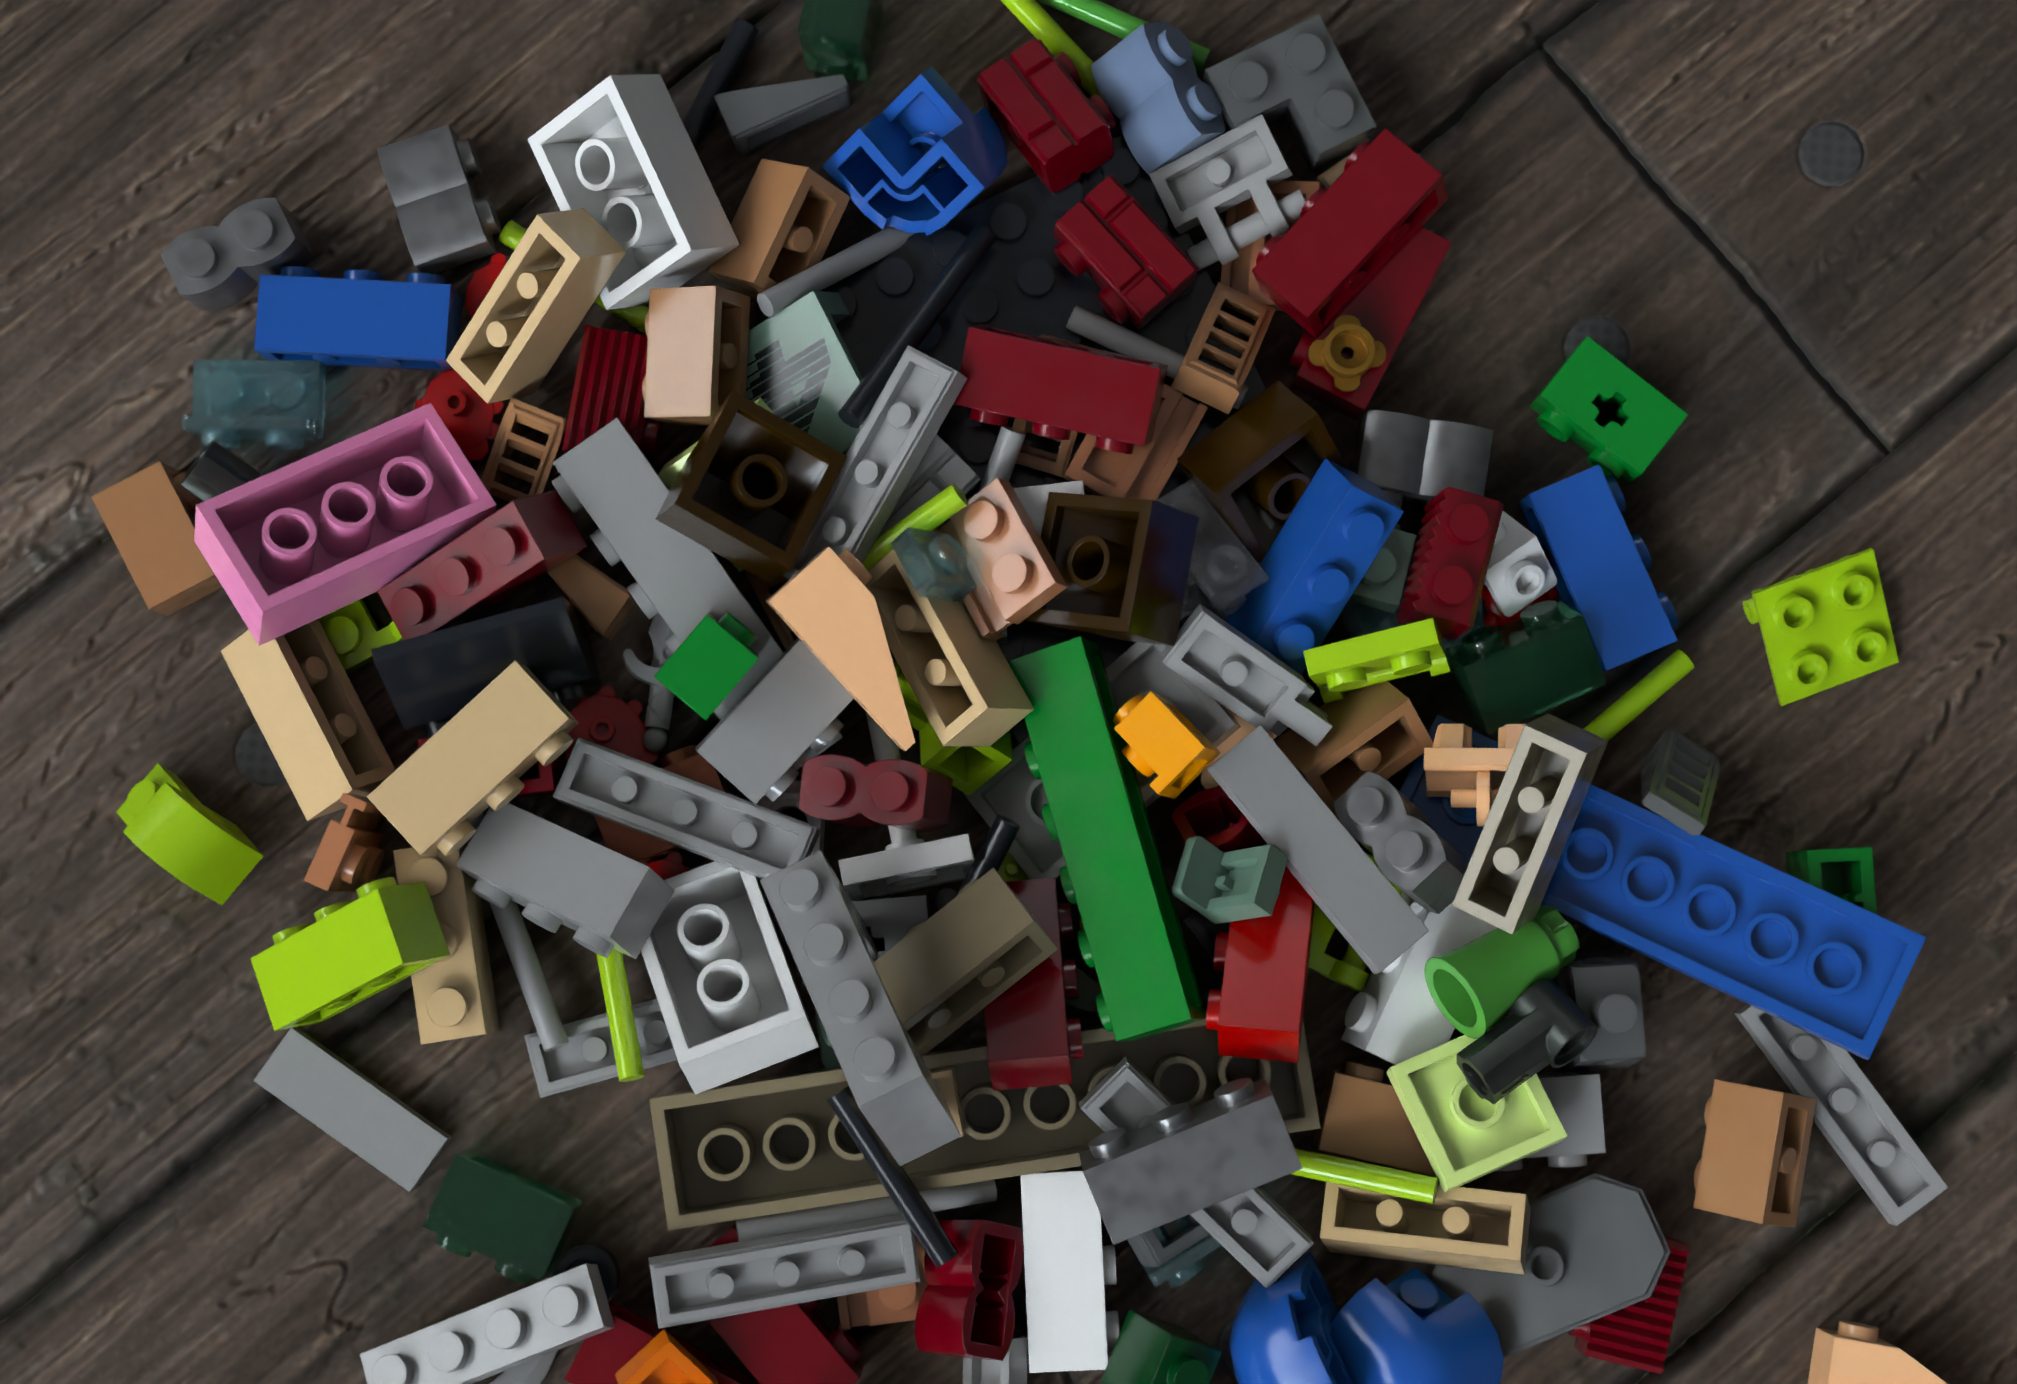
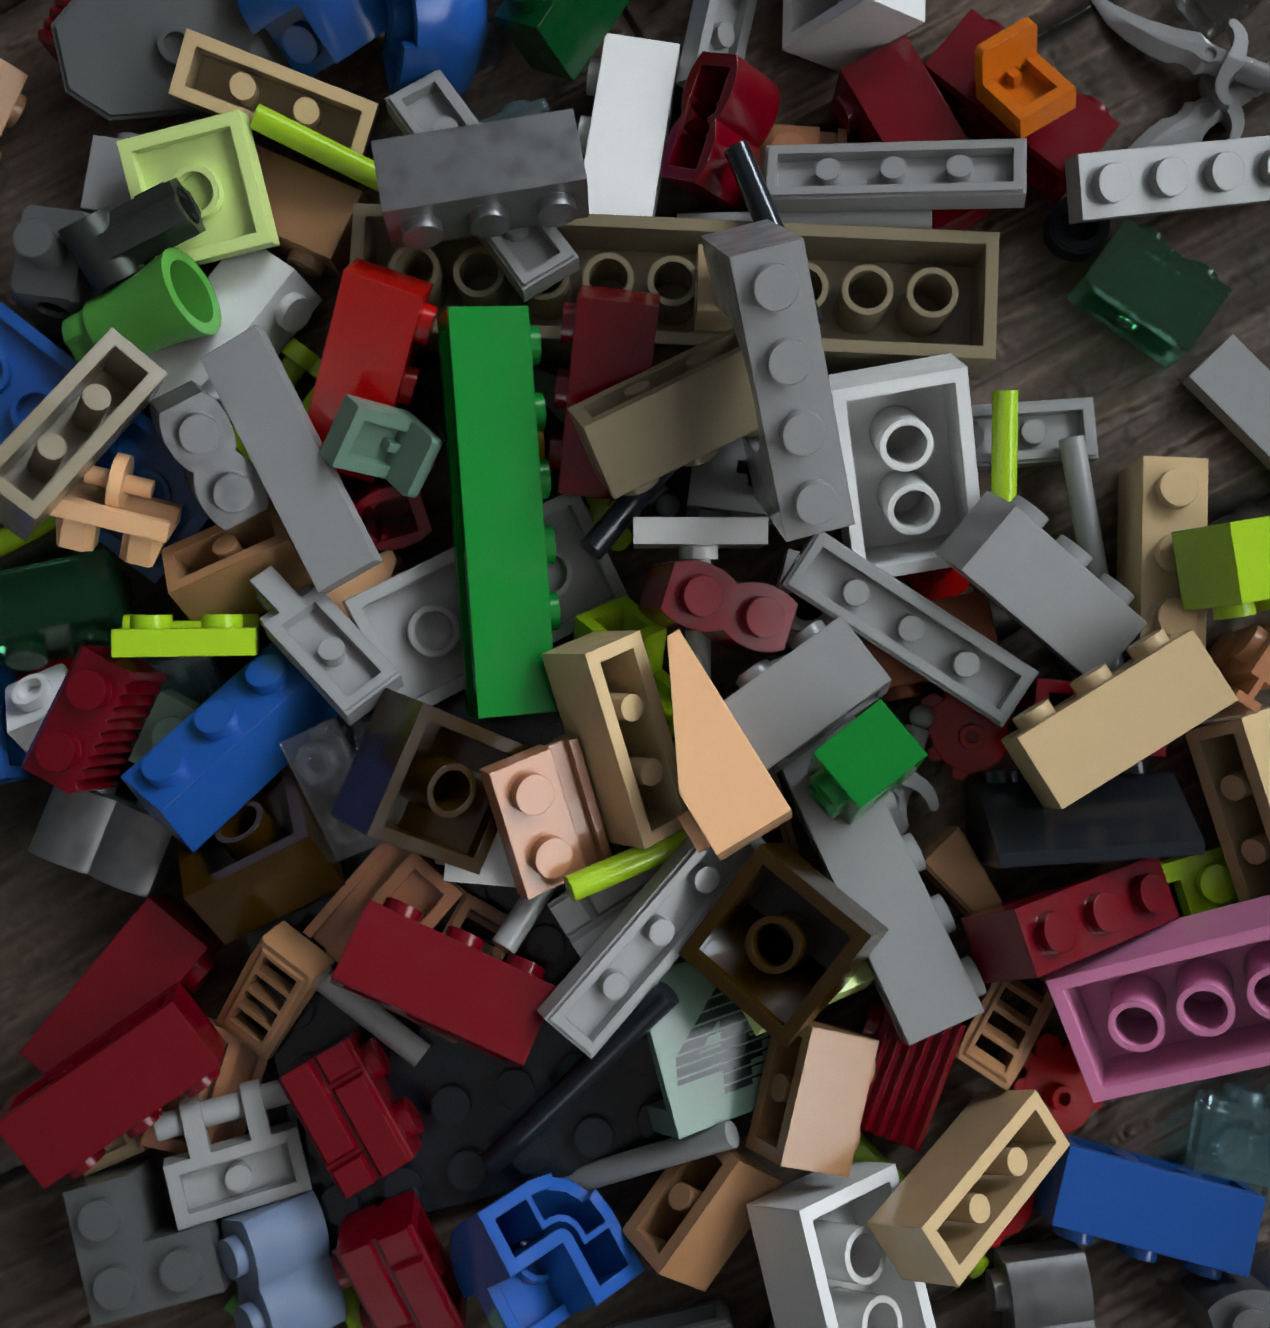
camera: 165 degrees left, 0 degrees up
(934, 564) = (611, 821): clear light blue plate -> none
(1163, 743) = (420, 596): light orange brick -> none
(1347, 334) = (129, 962): pearl gold plate -> none

